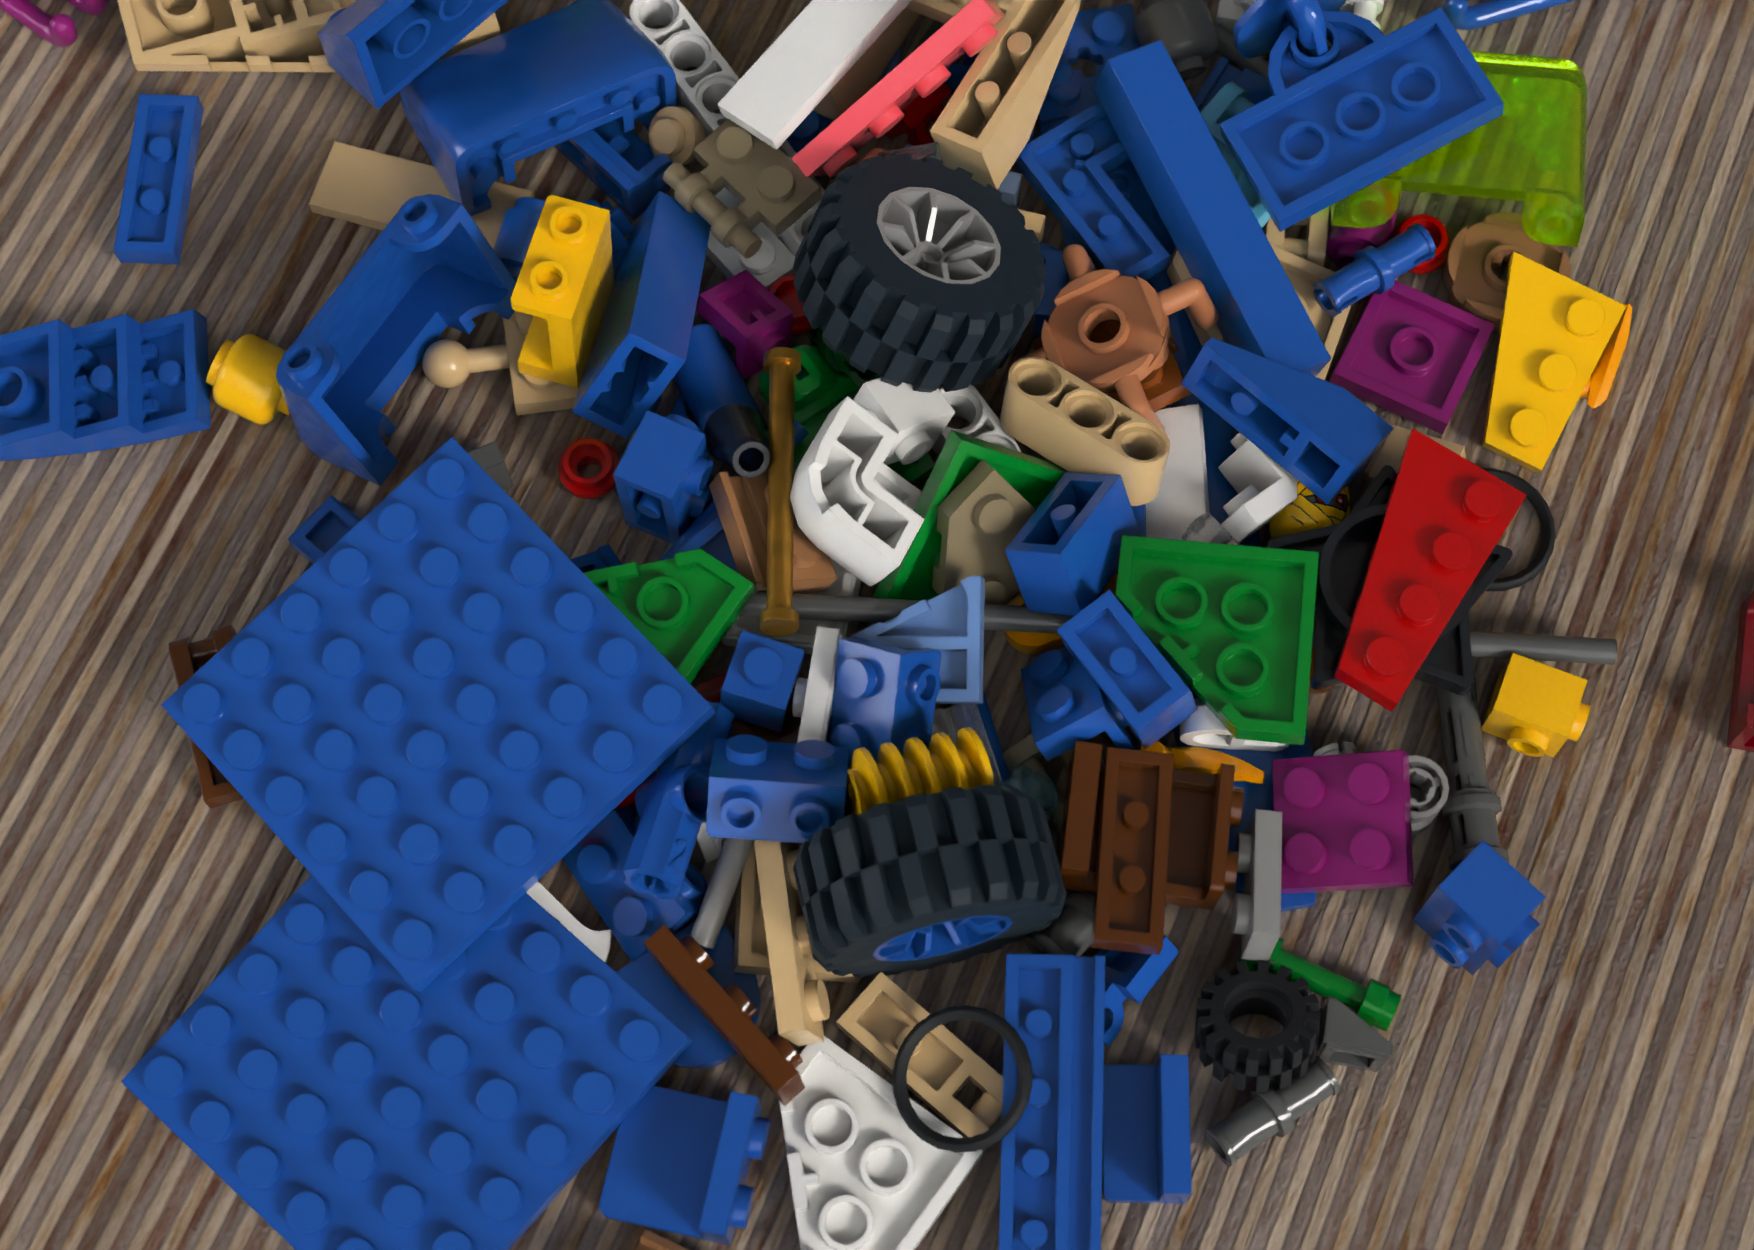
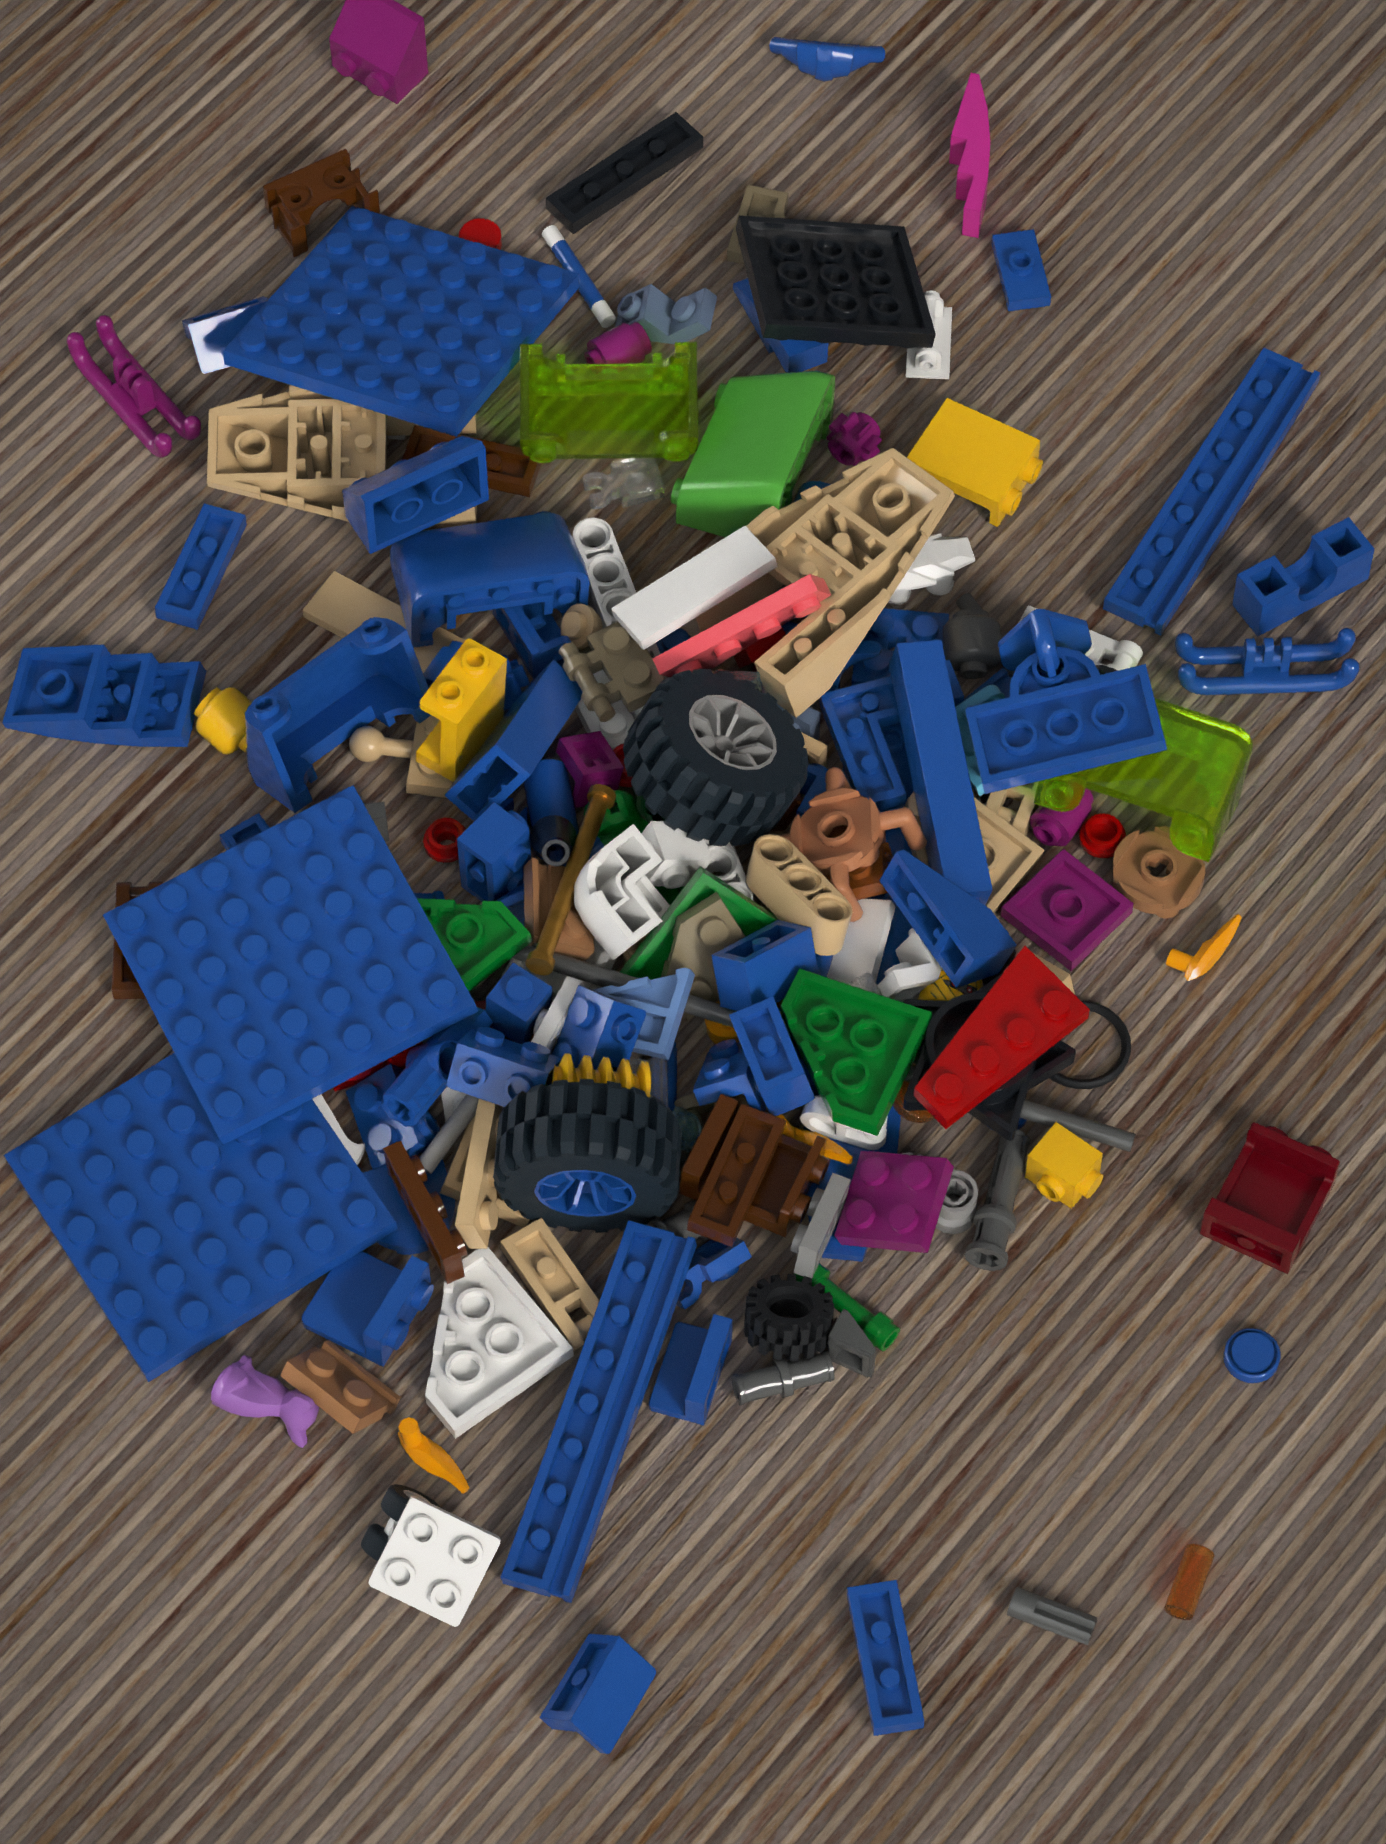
camera: 15 degrees right, 10 degrees down
(1023, 1091) = (602, 1317): black tyre -> none
(1374, 270) = (1054, 841): blue pin -> none
(1480, 911) = (967, 1281): blue brick -> none
(1544, 358) = (1158, 936): yellow wing -> none

